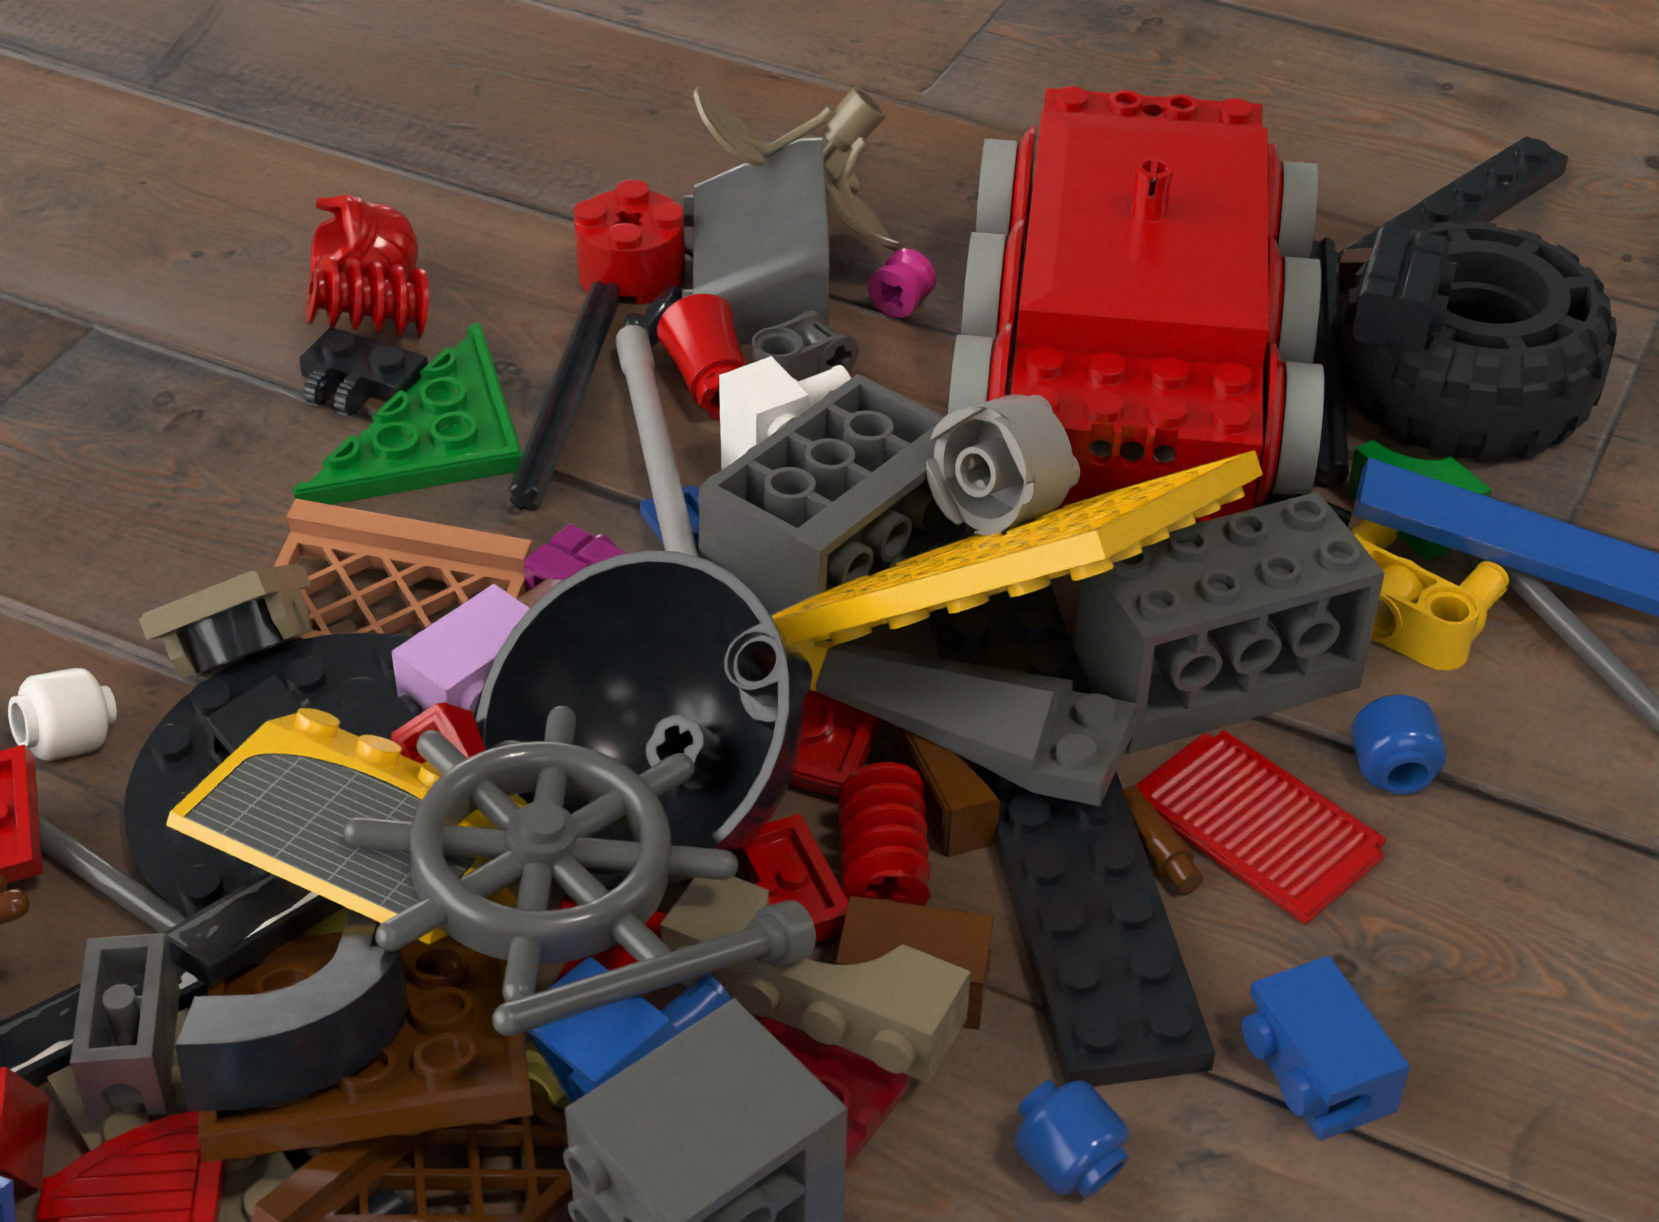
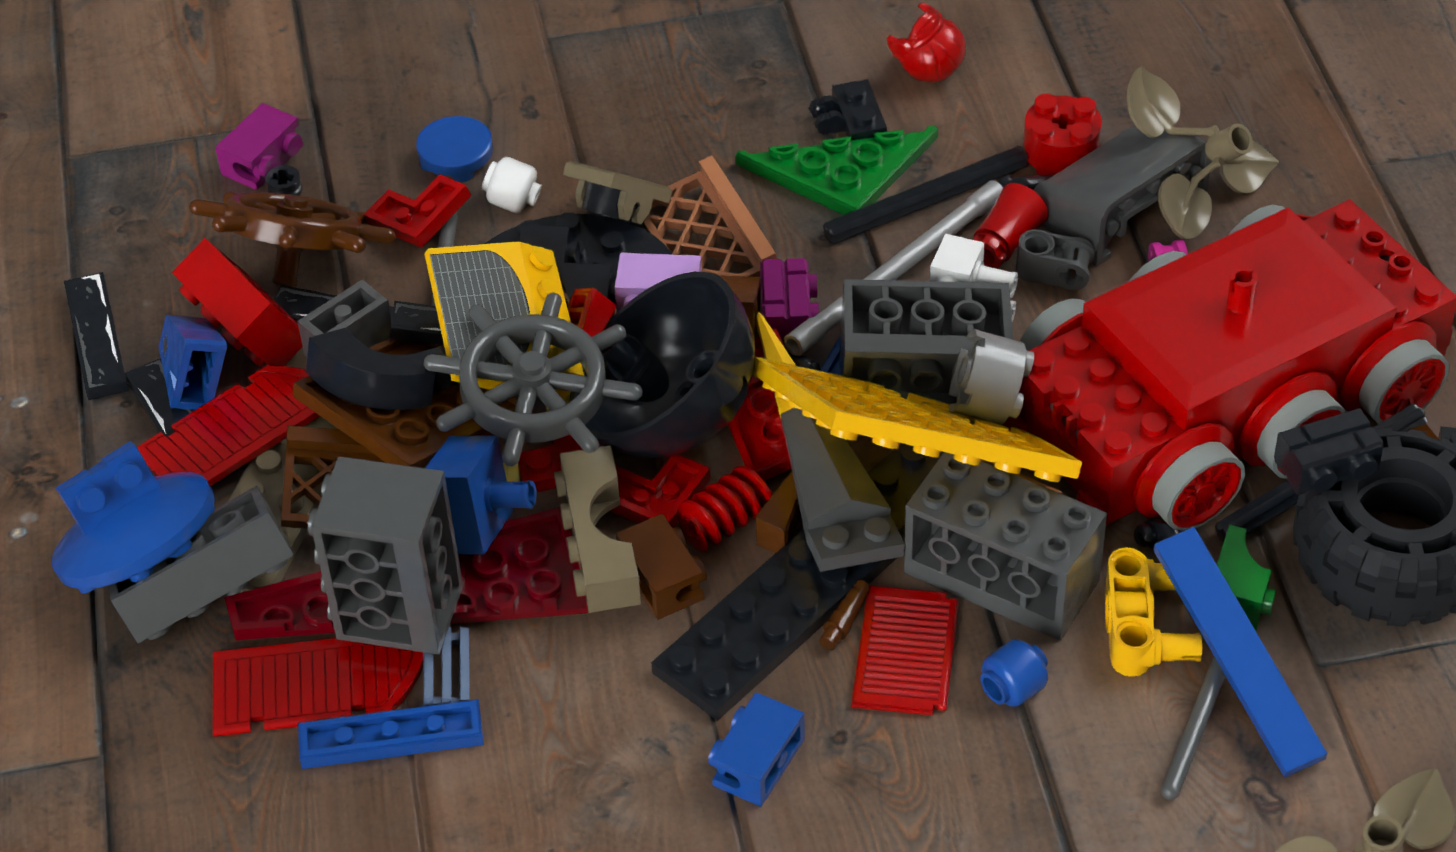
camera: 55 degrees right, 5 degrees up
(368, 295) = (892, 75): red piece -> none
(774, 936) = (573, 490): dark grey piece -> none
(1071, 1138) = (607, 683): blue head -> none

